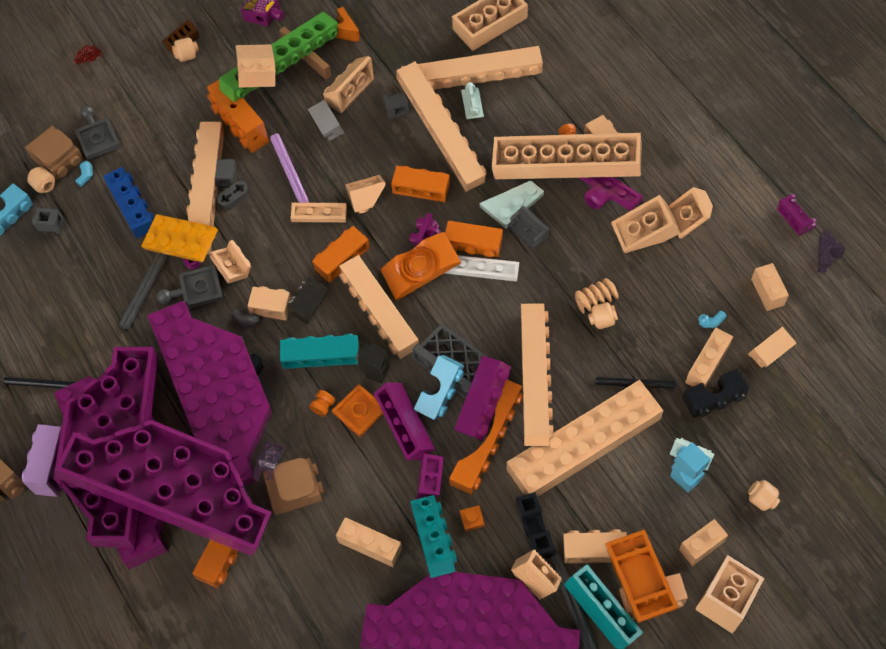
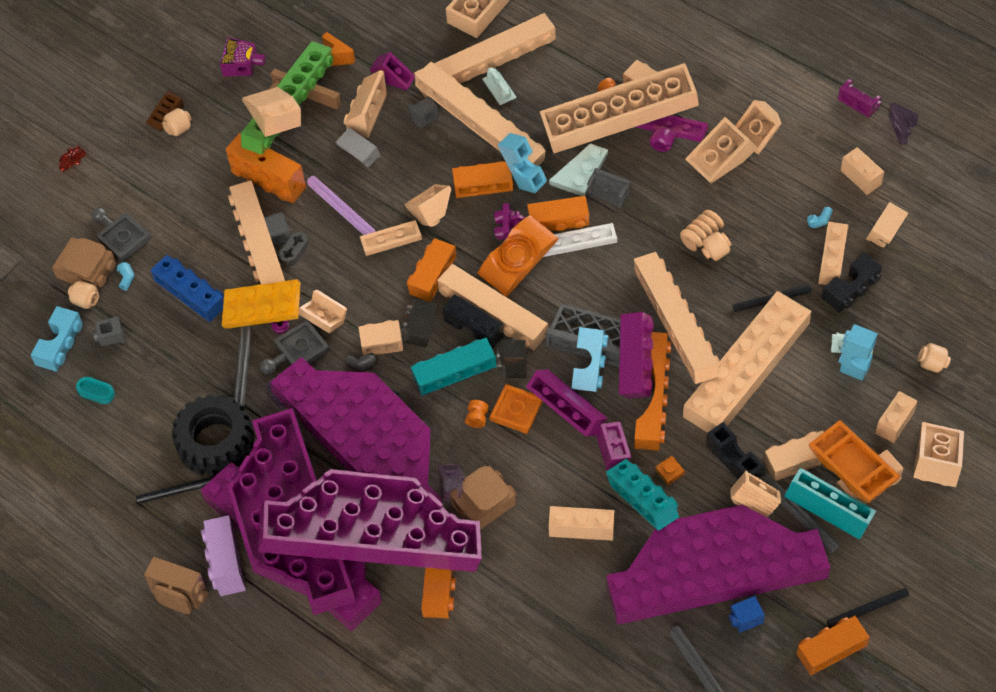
camera: 20 degrees left, 5 degrees down
(15, 268) = (95, 390): none -> teal tile
(73, 329) = (205, 413): none -> black tyre
(359, 319) = (461, 313): none -> black arch
(384, 59) = (395, 71): none -> magenta slope
(453, 171) = (526, 174): none -> medium azure arch

